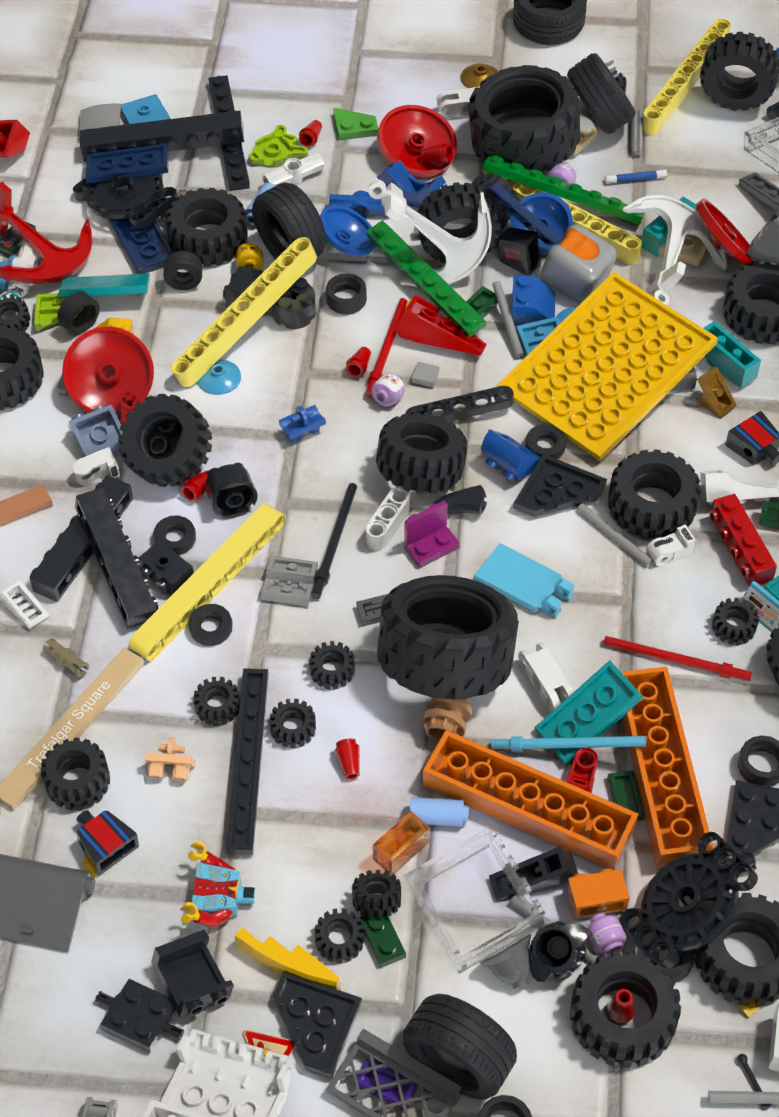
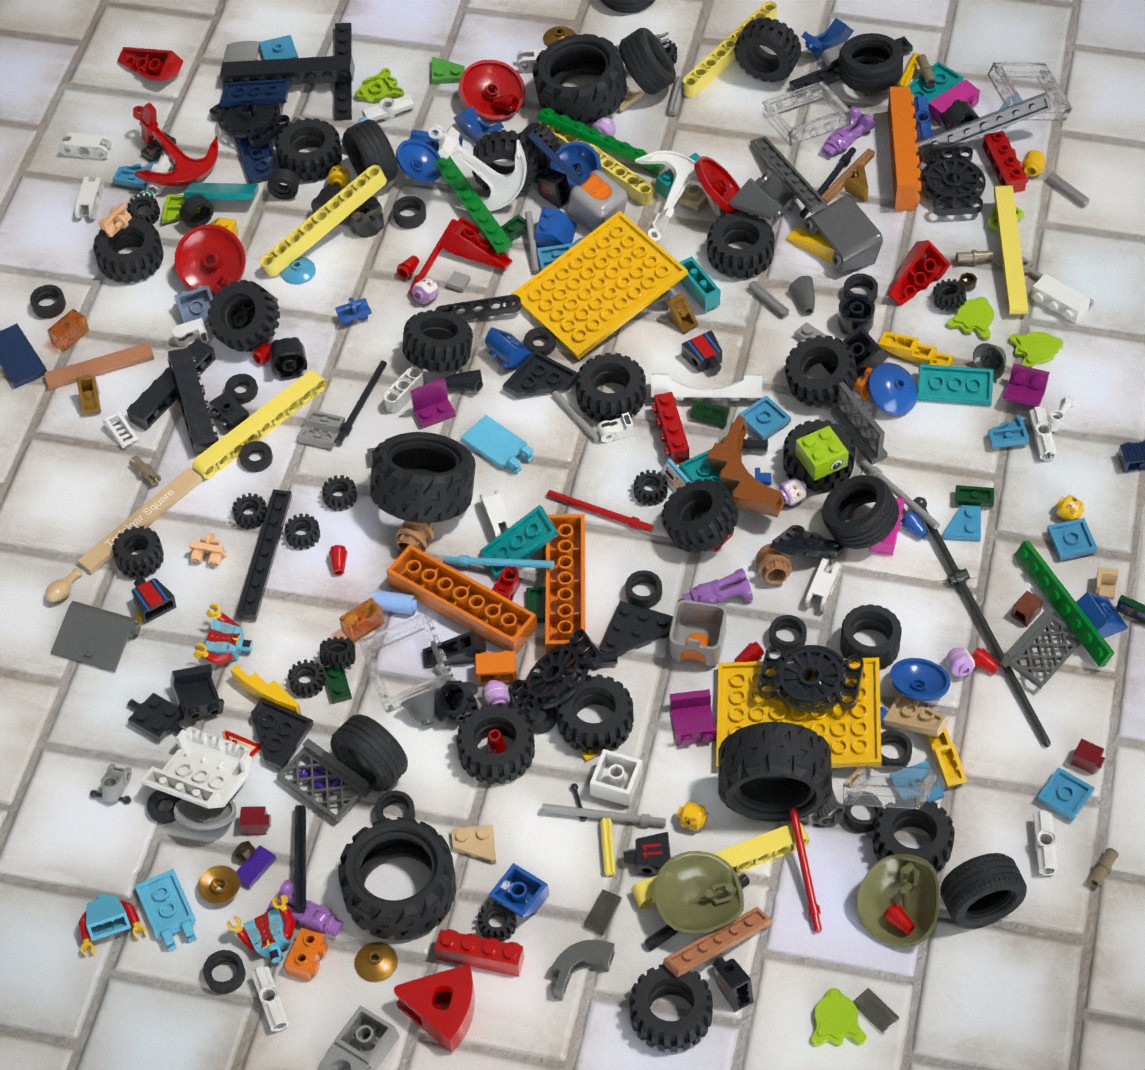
camera: 10 degrees right, 0 degrees up
(309, 134) = (408, 77): red cone -> none
(635, 176) = (666, 132): blue bar -> none

